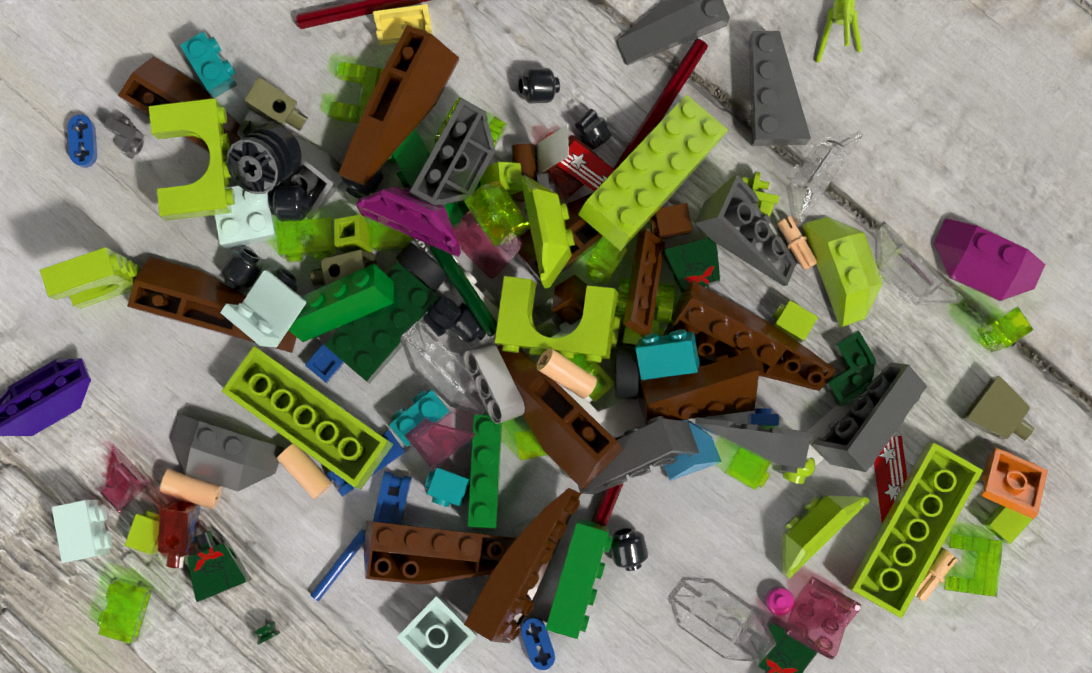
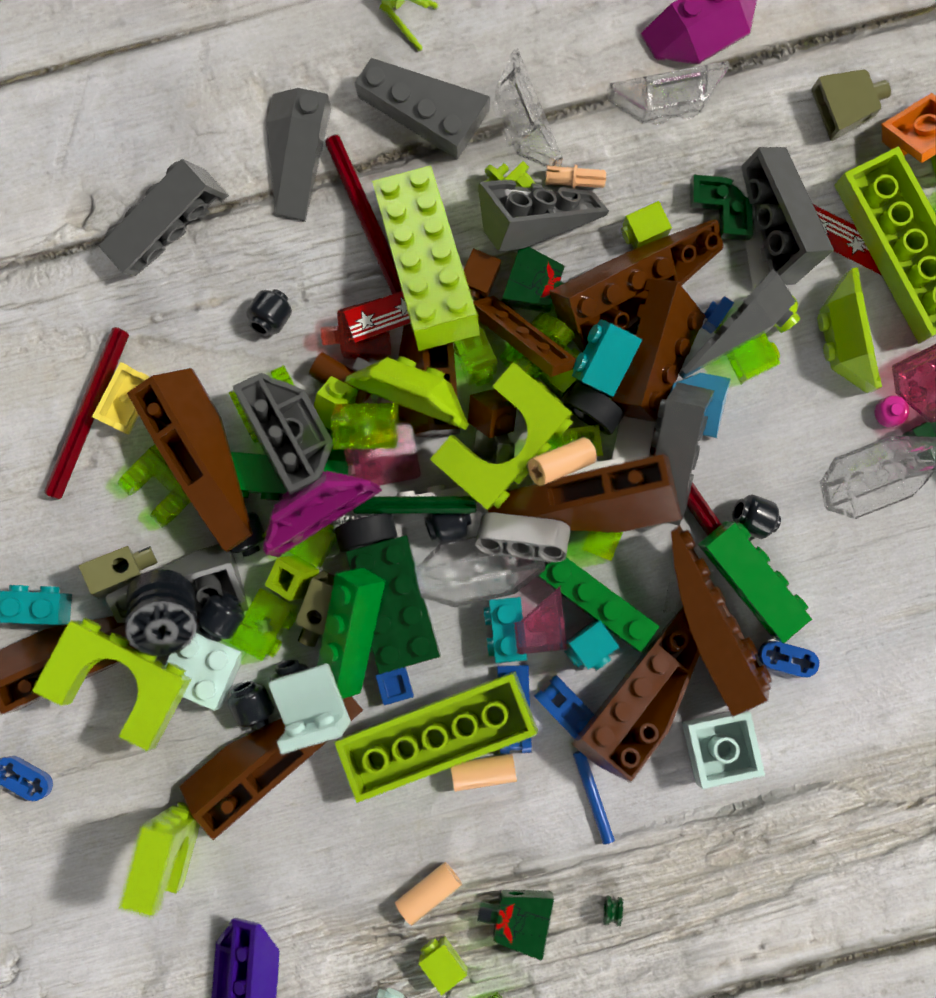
camera: 60 degrees left, 0 degrees up
(123, 481) = (376, 953): clear pink slope -> none
(124, 129) = (38, 730): flat silver bracket -> none
(177, 531) = (461, 933): clear red torso -> none
(223, 454) = (415, 840): dark grey wedge -> none
(442, 315) = (426, 543): black piece -> none
(552, 150) = (341, 333): white sticker -> none
(593, 129) = (345, 289): black piece -> none
(845, 268) = (626, 150): lime wedge -> none
(1004, 330) = (781, 44): clear neon green brick -> none

